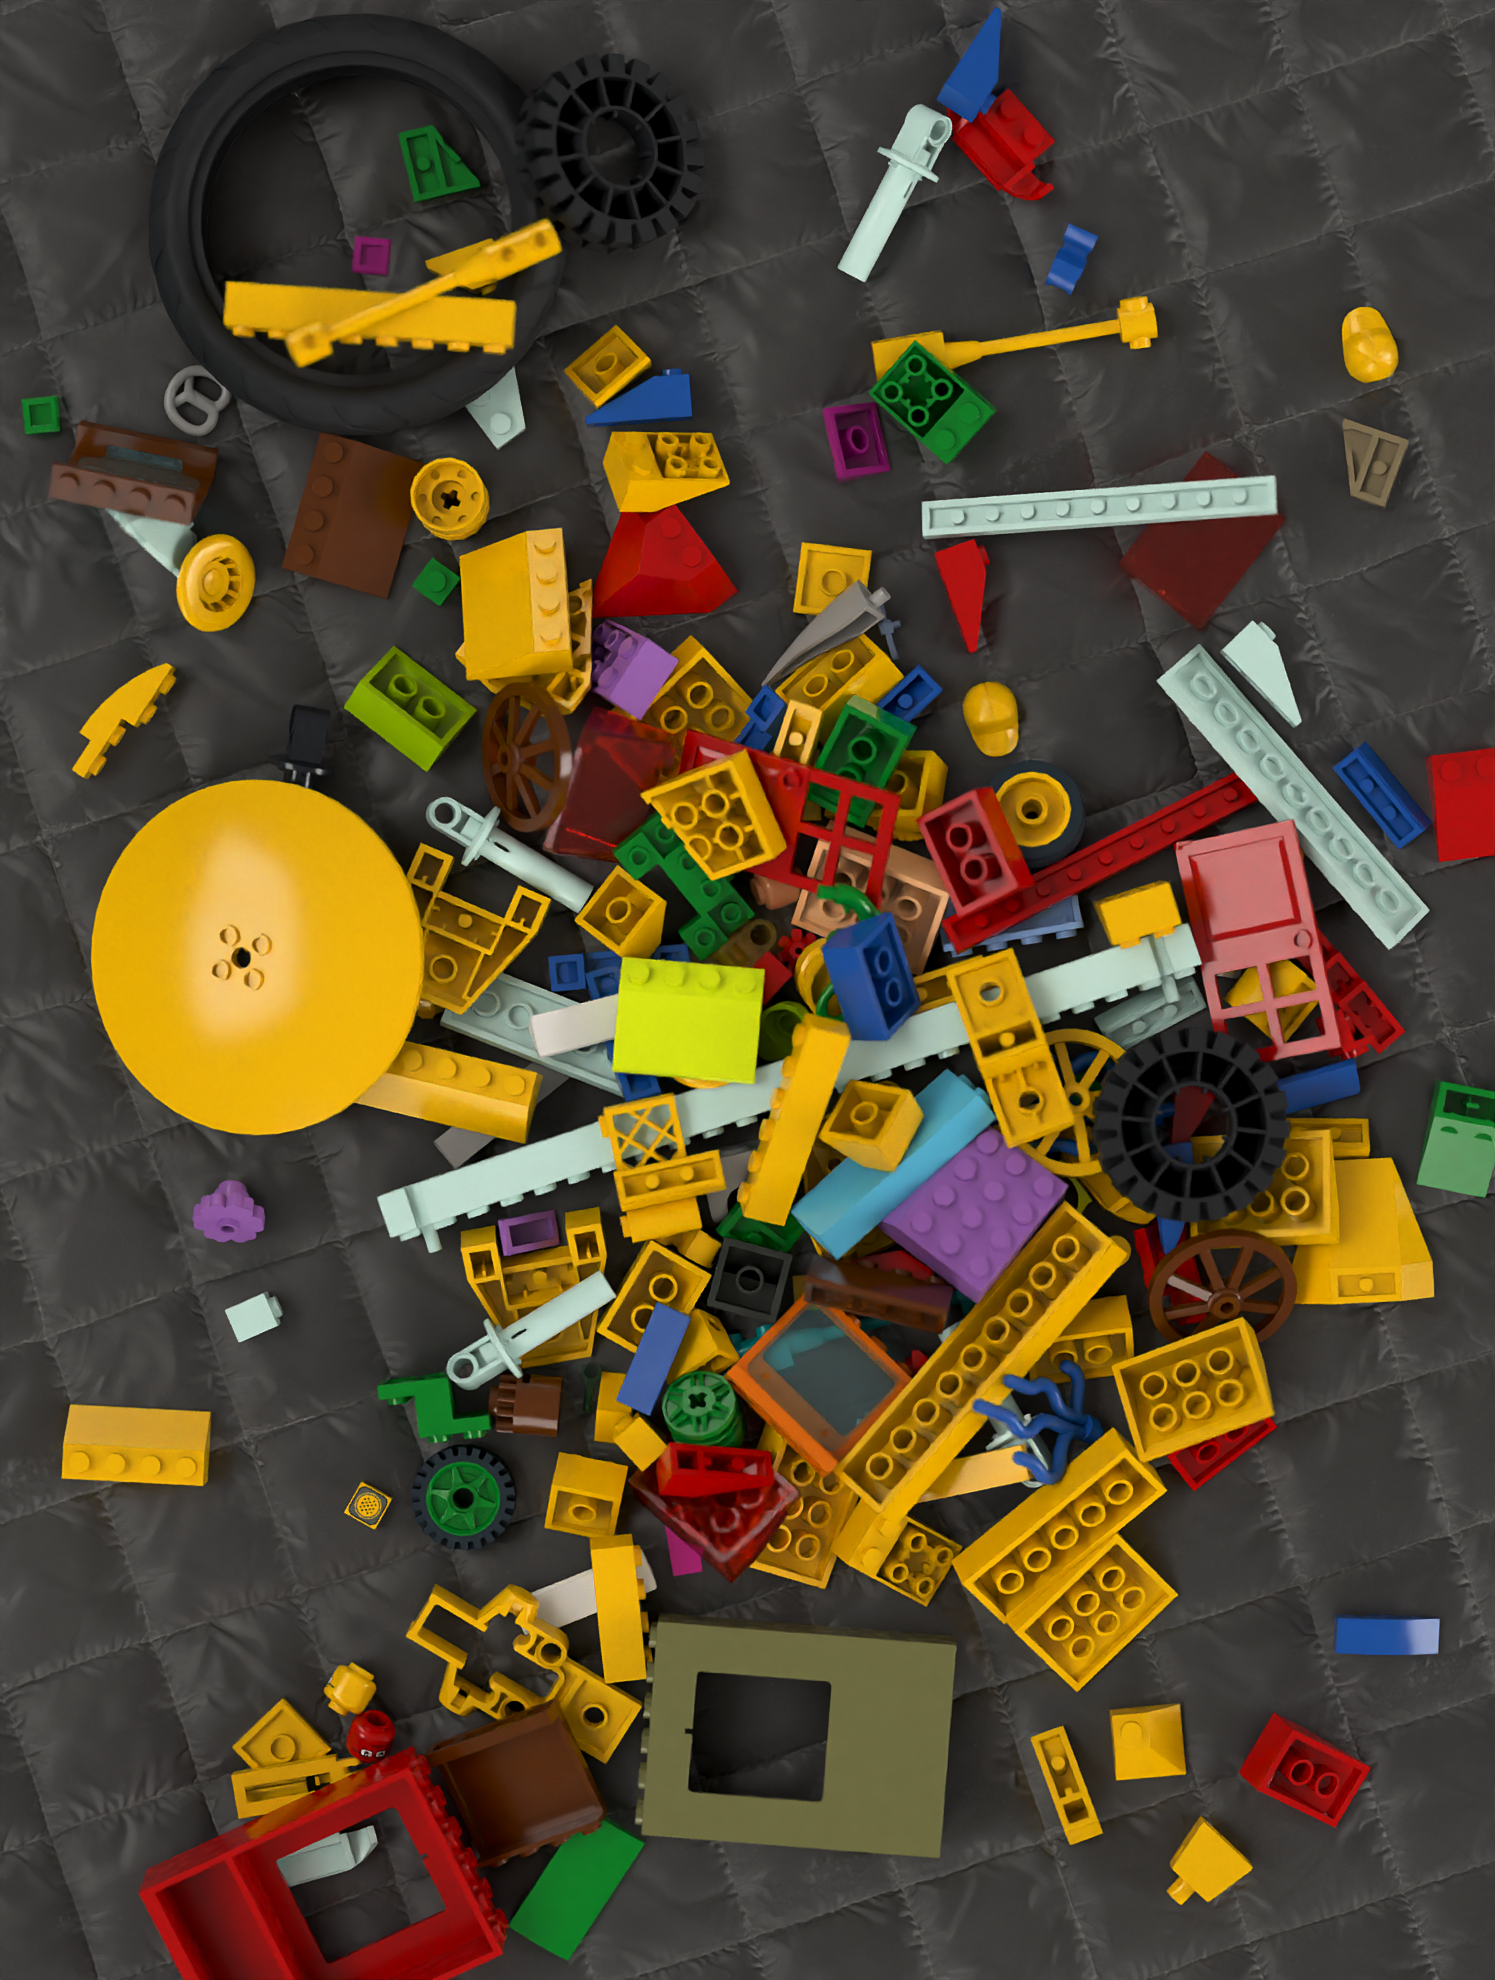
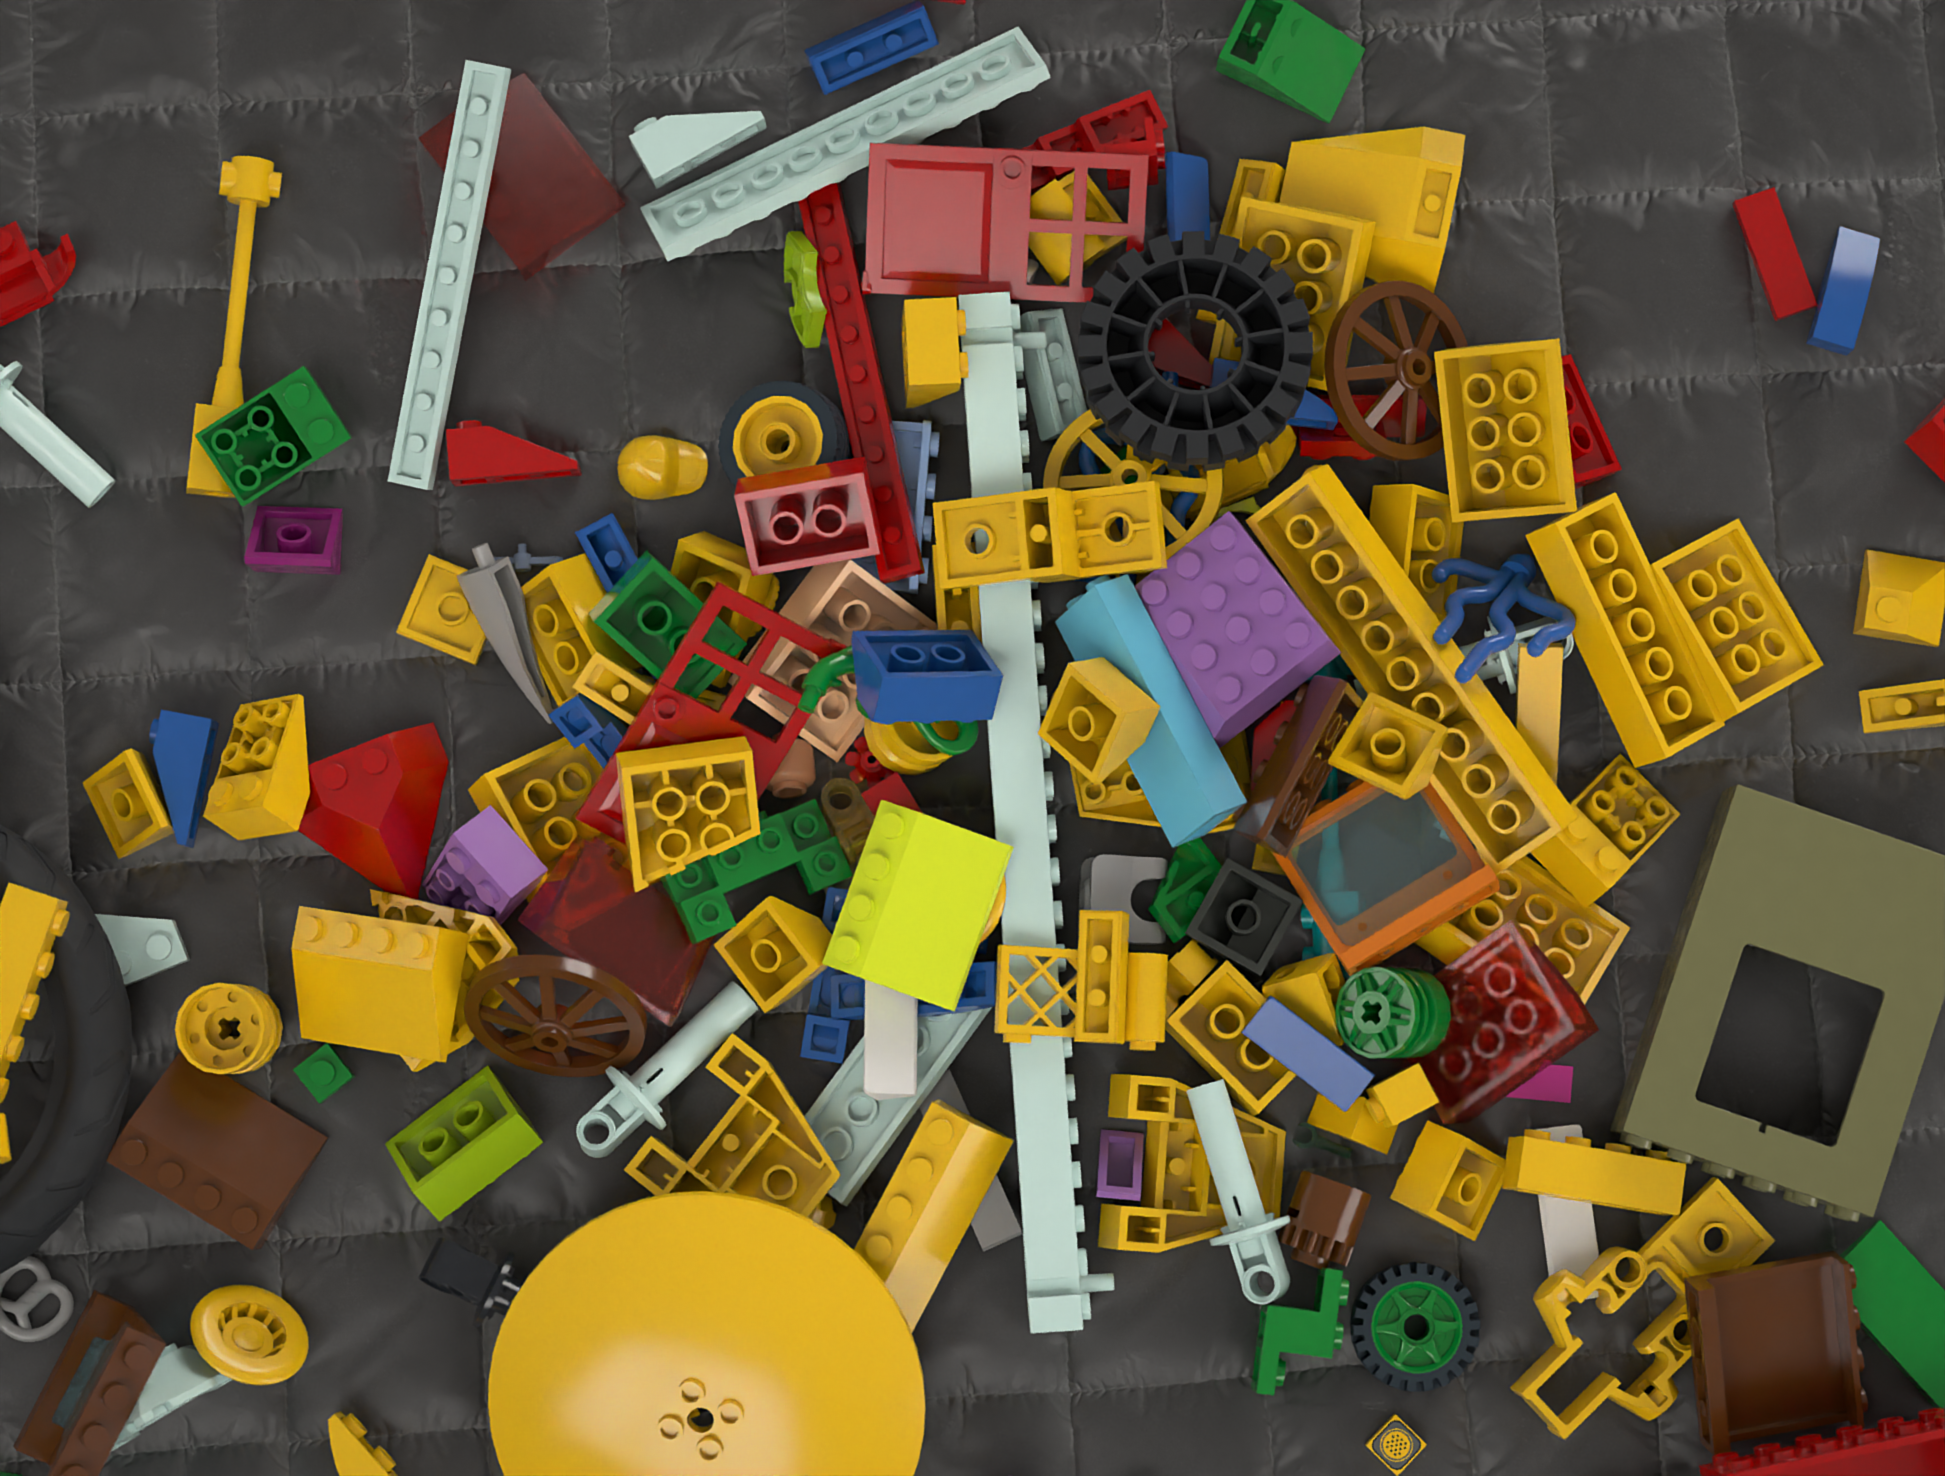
camera: 75 degrees left, 5 degrees down
(710, 1470) = (1458, 1018): red slope -> none
(778, 1028) = (961, 798): lime piece -> none
(793, 1119) = (1066, 810): yellow brick -> none
(911, 1362) = (1390, 747): none -> yellow slope
(1071, 258) = (155, 237): blue leg -> none
(1149, 802) = (800, 270): none -> lime tile
(1402, 1571) = (1774, 254): none -> red tile

